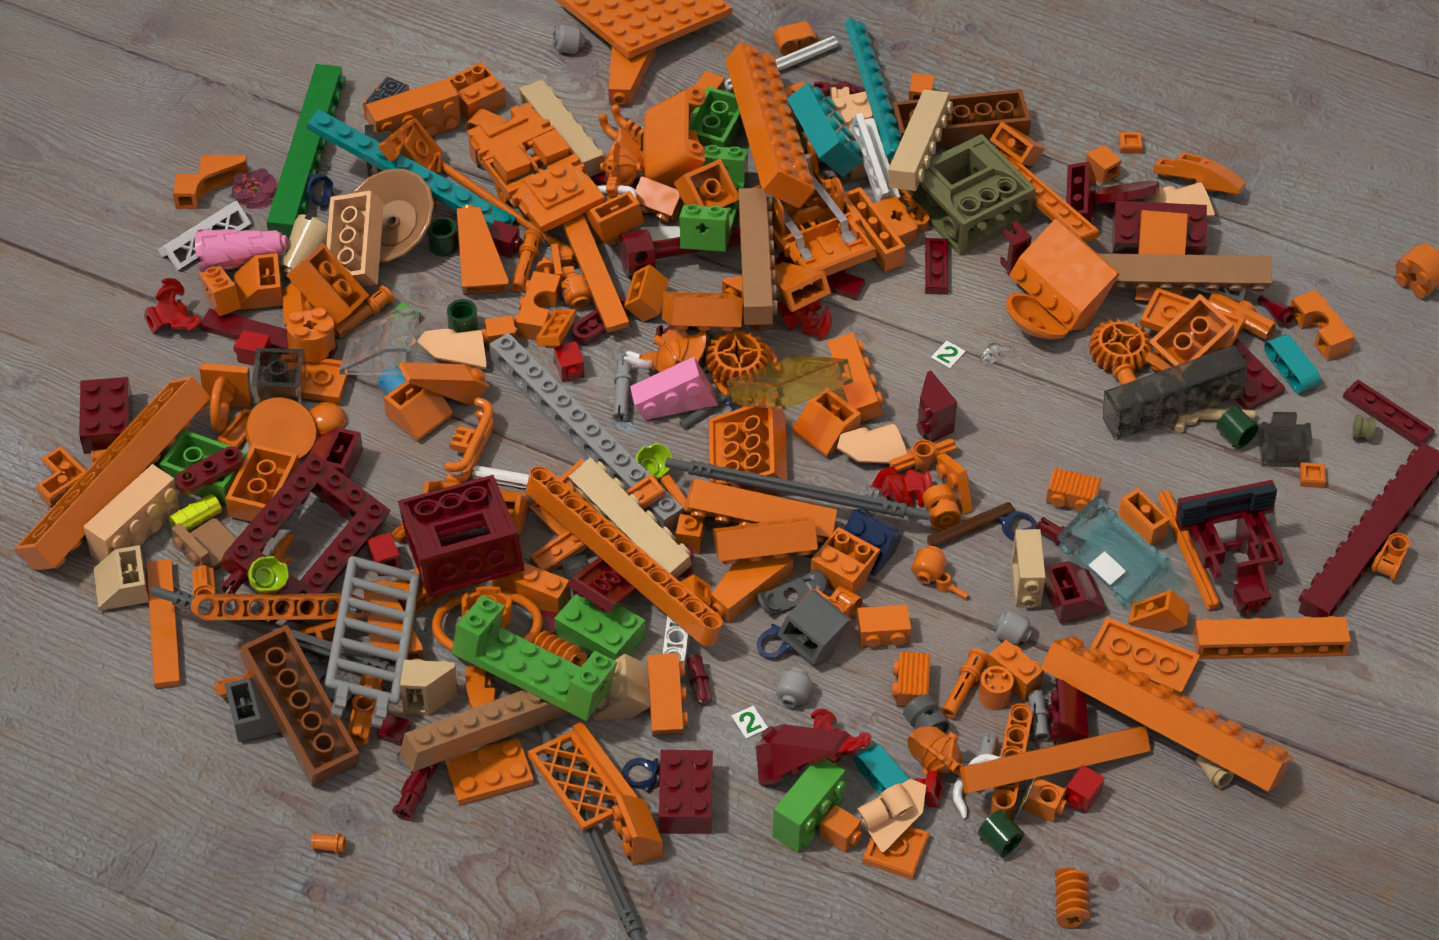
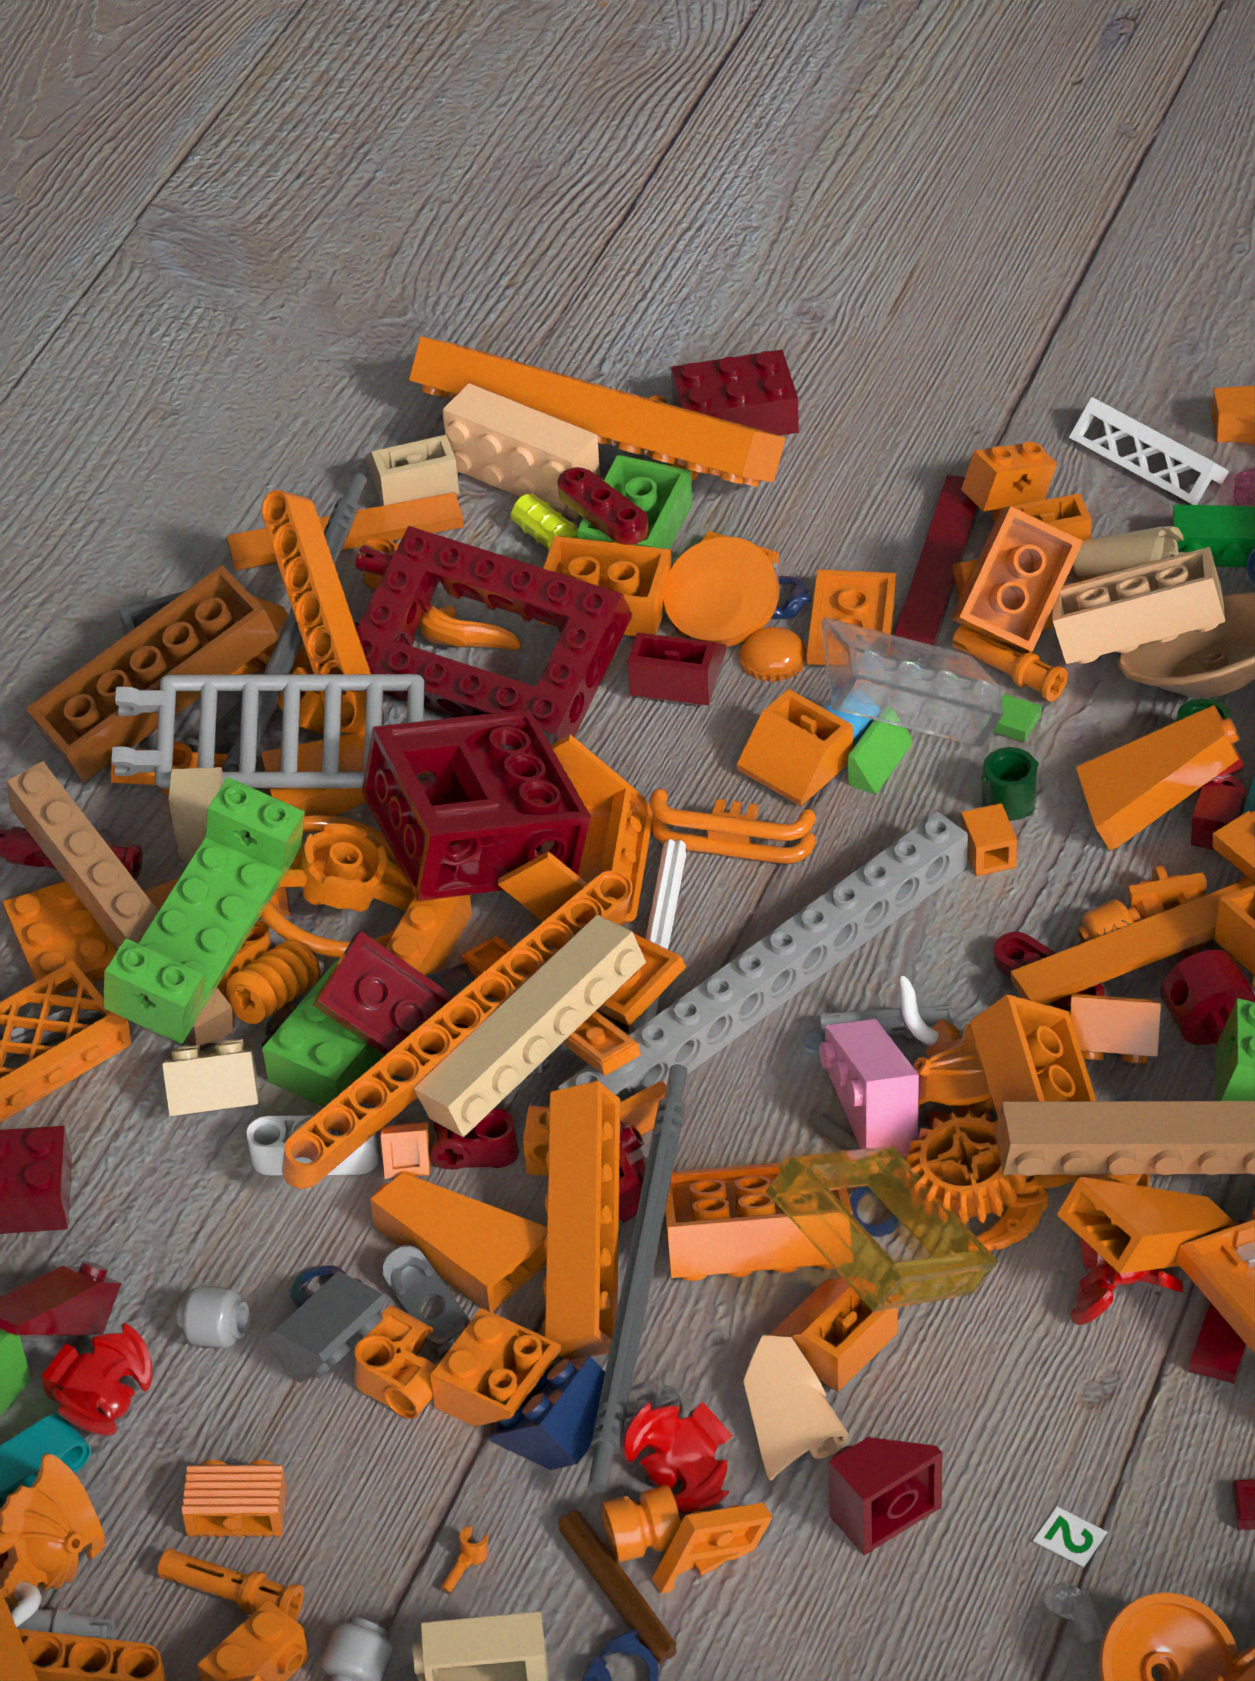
camera: 90 degrees right, 5 degrees down
(65, 474) = (626, 373): orange brick -> none
(168, 310) = (960, 429): red animal -> none
(203, 545) = (484, 526): medium nougat bracket -> none
(228, 388) = (793, 511): orange tile -> none
(235, 248) = (1095, 463): bright pink cone -> none
(246, 346) = (901, 540): red brick -> none
(268, 575) = (367, 580): lime hair -> none
(279, 374) = (817, 559): clear smoke brick -> none
(312, 332) = (921, 588): orange brick -> none
(393, 729) = (144, 814): dark red tile -> none
(450, 380) = (842, 758): orange wedge -> none
(455, 347) = (942, 777): light nougat panel -> none
(528, 252) = (1121, 856): orange pin -> none
(540, 292) = (1035, 873): orange arch -> none
(556, 327) = (1002, 904): orange plate -> none
(569, 361) = (935, 939): red brick -> none
(650, 765) = (62, 1110): dark blue piece -> none
(653, 459) = (712, 1074): lime hair -> none
(666, 694) = (184, 1126): orange brick -> none
(699, 679) = (237, 1187): dark red axle -> none
(749, 721) = (160, 1273): white sticker -> none
(765, 539) = (502, 1221): orange brick -> none
(861, 391) = (955, 1363): orange brick -> none
(883, 625) = (356, 1447): orange brick -> none
(923, 455) = (772, 1475): orange axle -> none
(924, 712) = (142, 1520): dark grey wheel -> none
(929, 564) = (501, 1510): orange head -> none
(996, 688) = (206, 1621): orange piece -> none

